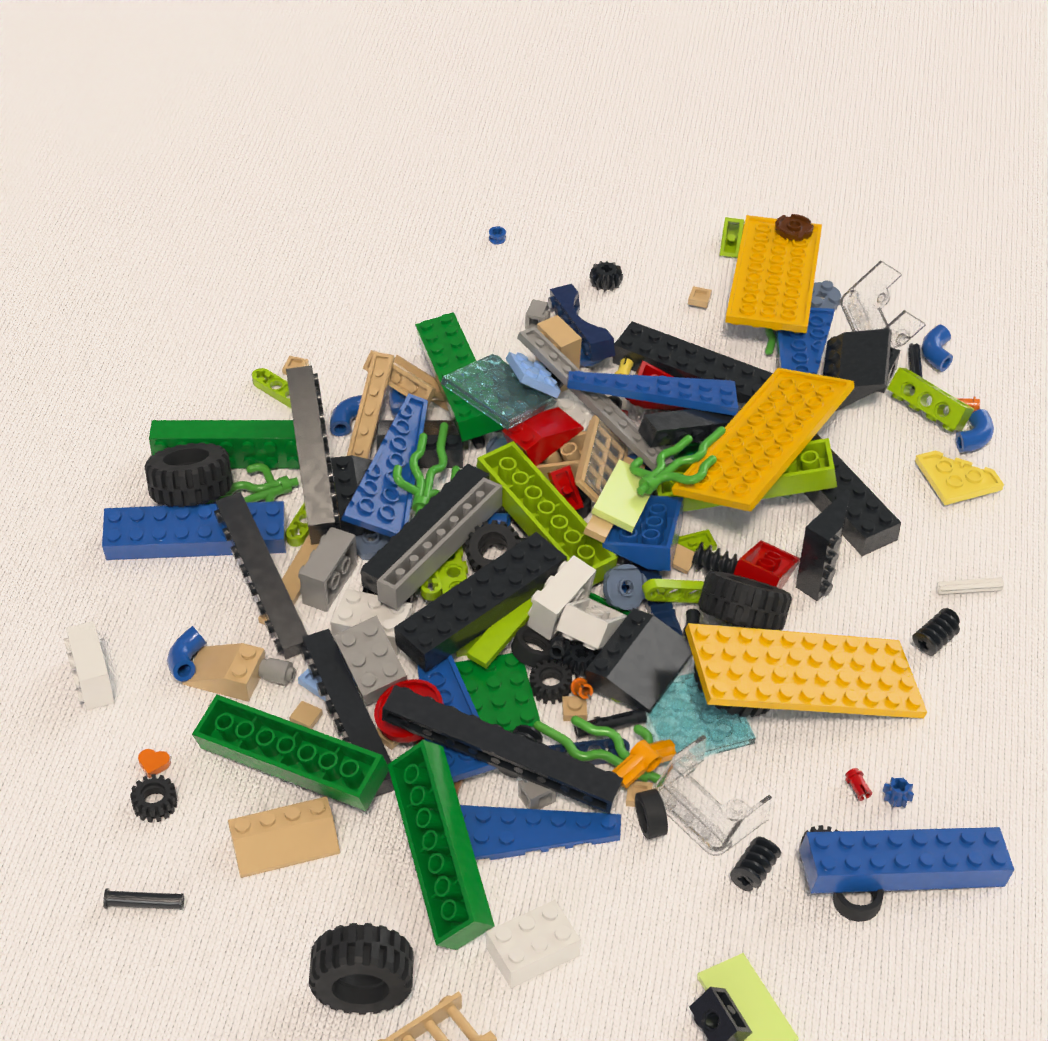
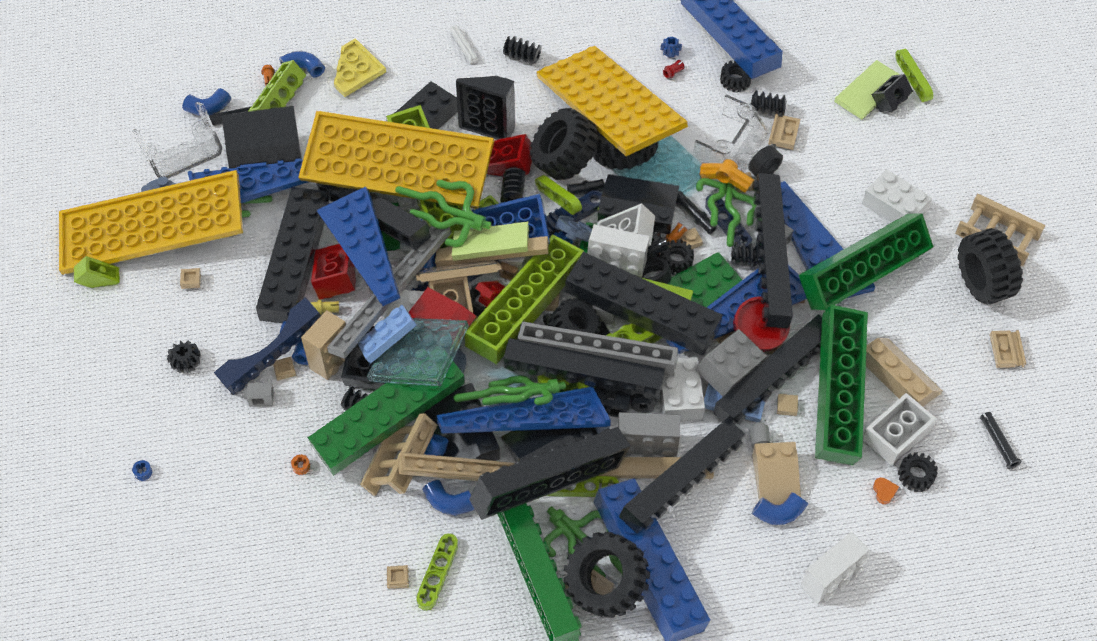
camera: 110 degrees left, 10 degrees up
(209, 793) = (899, 429): none -> white brick
(254, 969) = (1007, 349): none -> tan plate
(703, 867) = (784, 131): none -> tan plate
(794, 227) = (74, 226): reddish brown tile -> none

